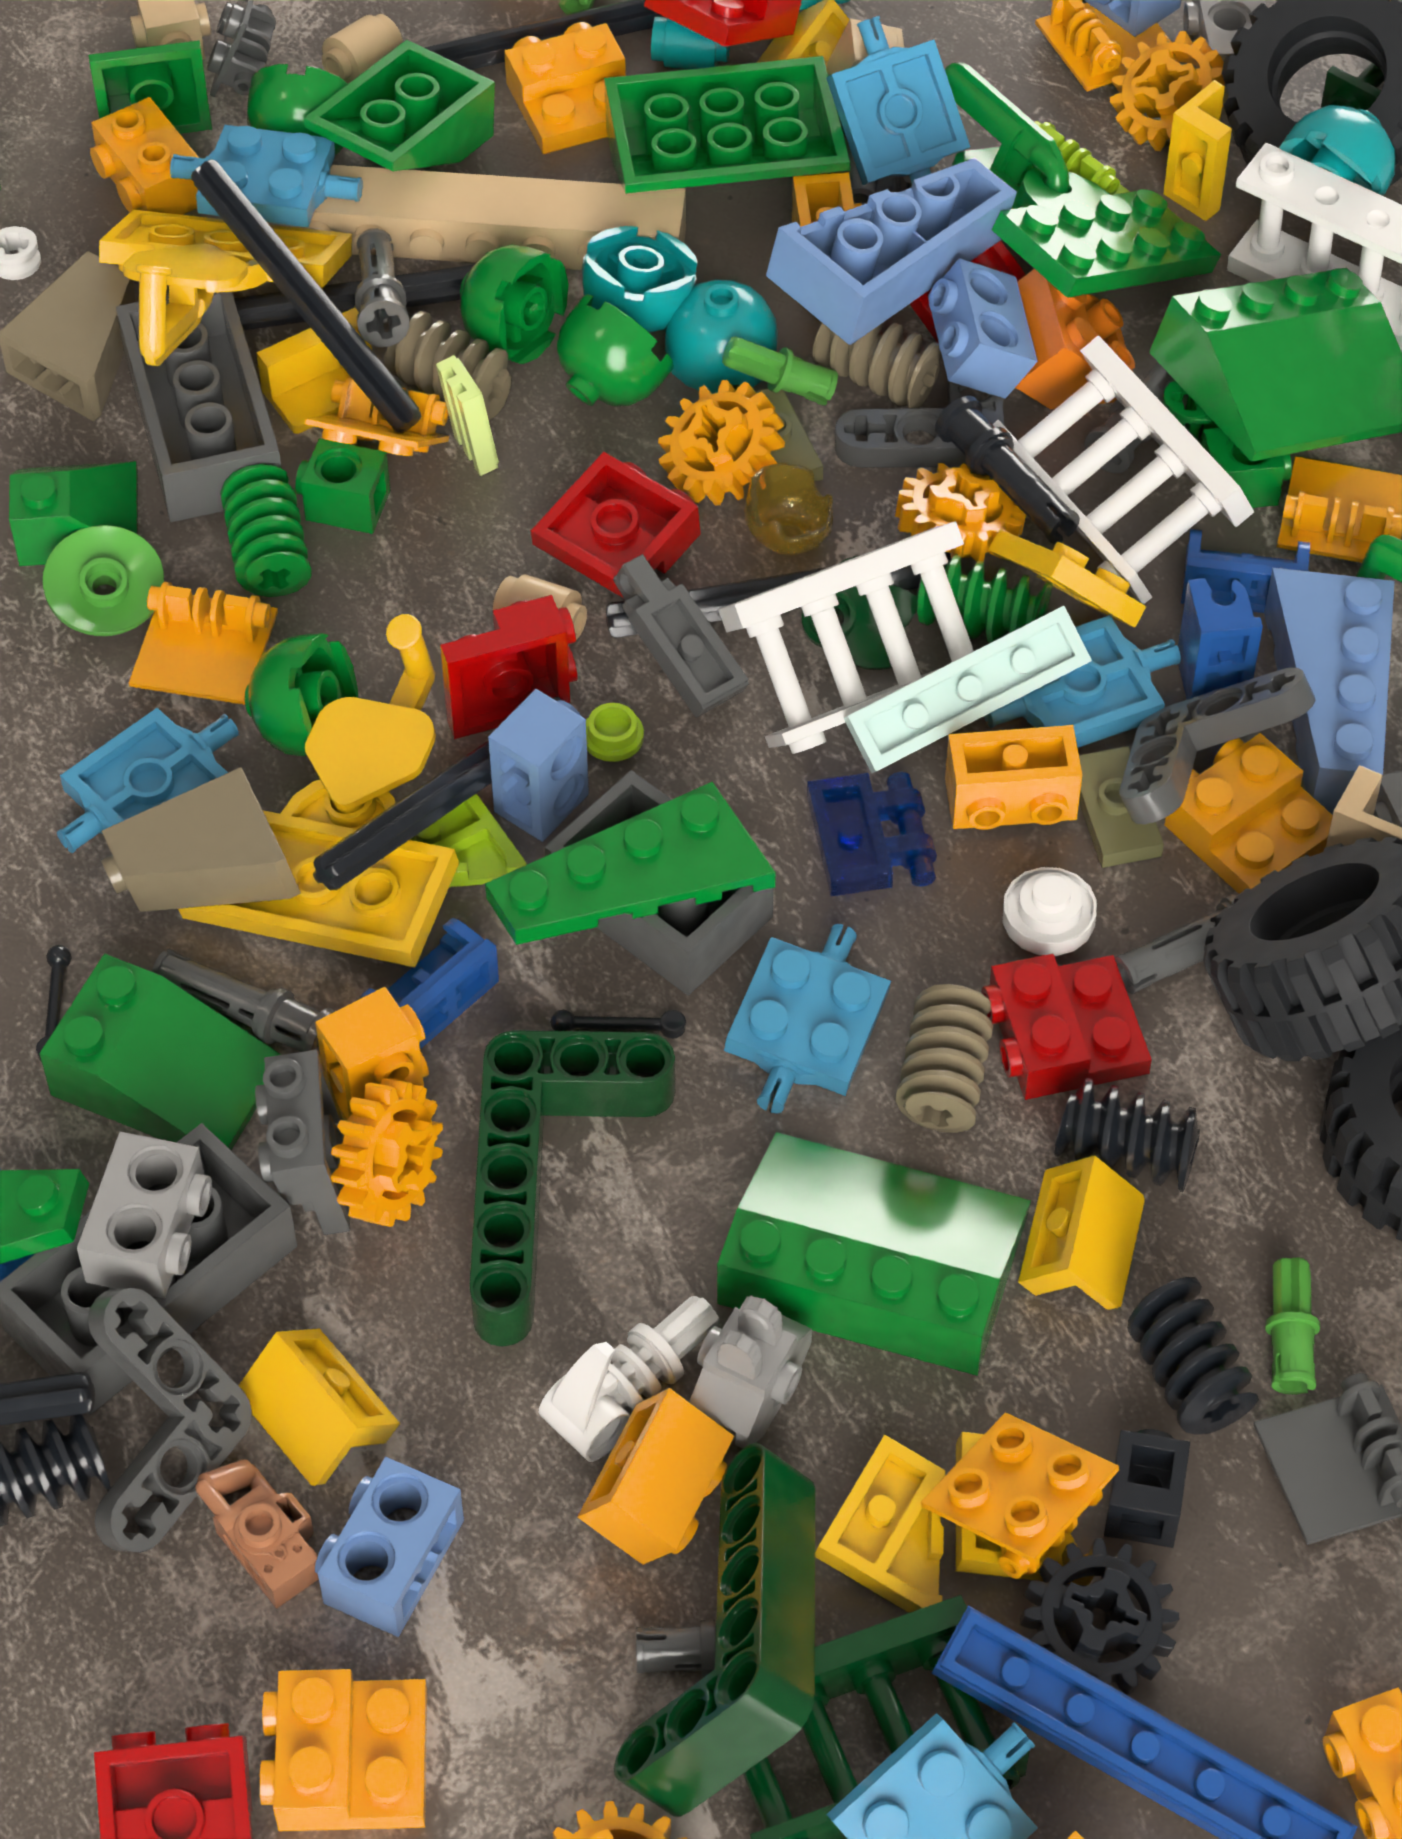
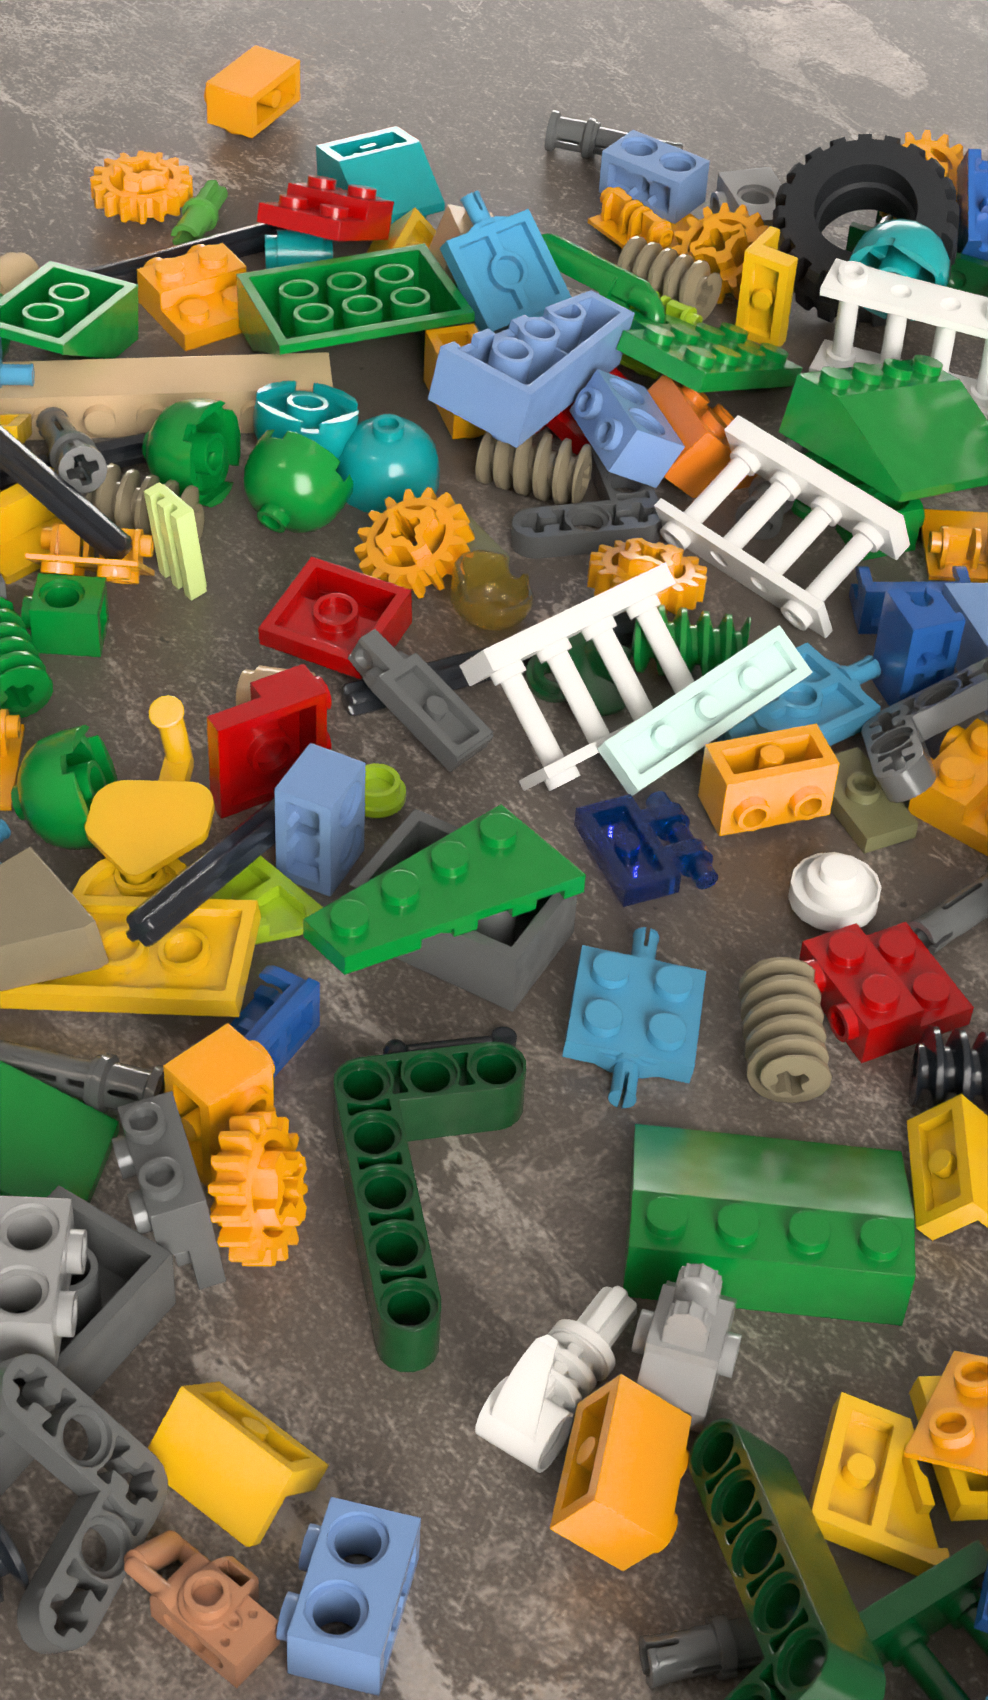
camera: 15 degrees left, 10 degrees down
(781, 370) = (453, 479): bright green axle -> none
(992, 454) = (665, 524): black pin -> none
(1067, 573) = (768, 606): yellow wing -> none
(1097, 120) = (673, 274): none -> dark tan piece

